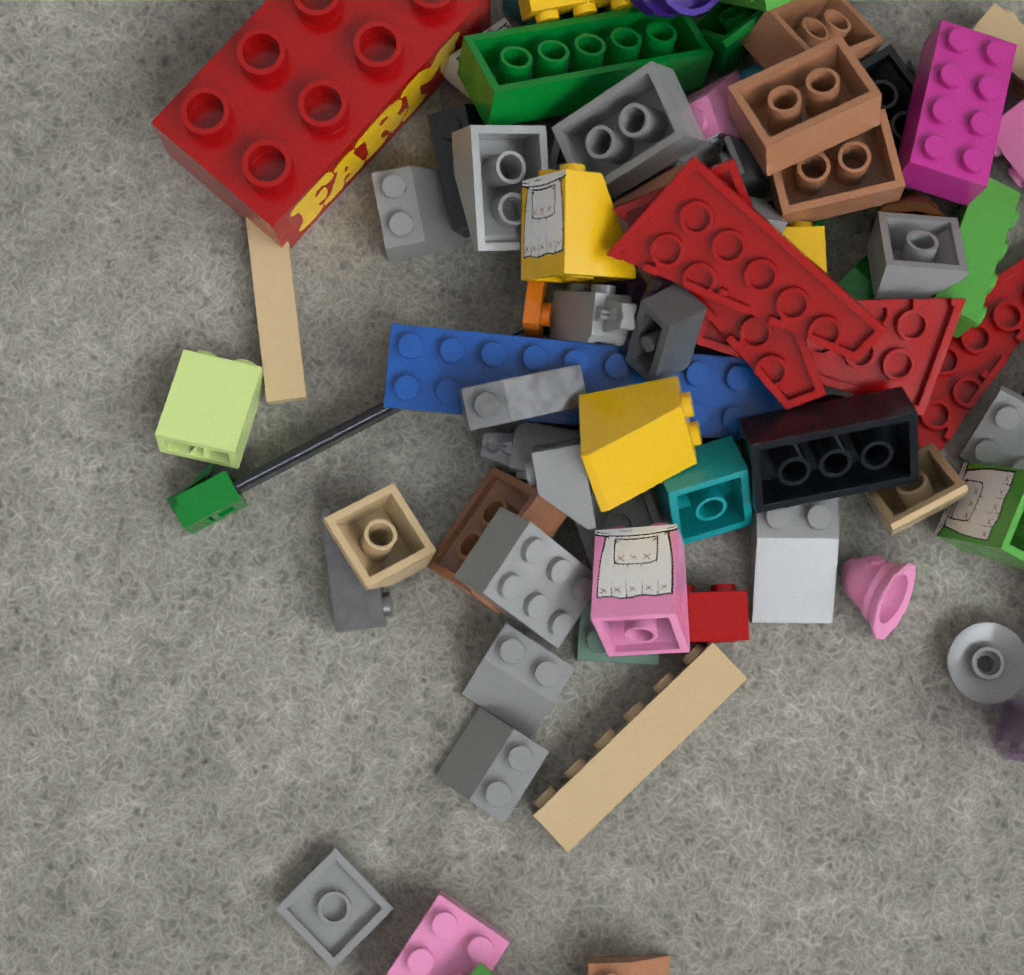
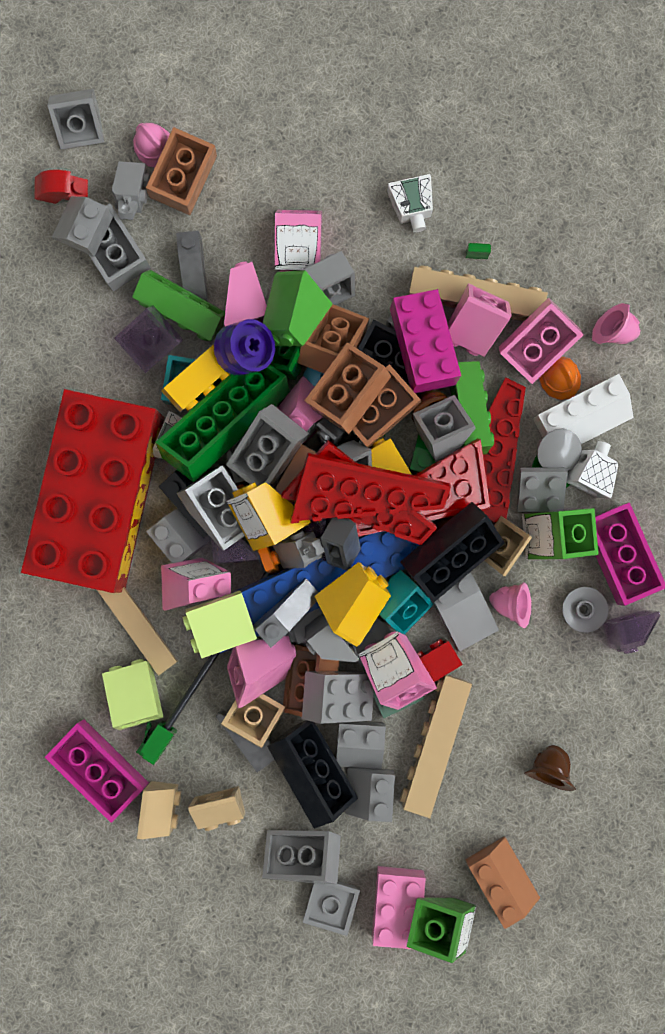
camera: 25 degrees left, 5 degrees up
(91, 492) = (97, 770): none -> dark pink brick
(150, 605) = (158, 810): none -> tan slope
(242, 655) = (217, 808): none -> tan slope
(333, 802) = (302, 856): none -> light grey slope
(398, 287) = (193, 583): none -> bright pink slope
(410, 354) = (219, 624): none -> yellowish green brick
(422, 676) = (313, 773): none -> black brick
(431, 465) = (258, 668): none -> bright pink slope
(488, 278) = (237, 552): none -> clear purple slope
(803, 887) = (552, 768): none -> reddish brown piece

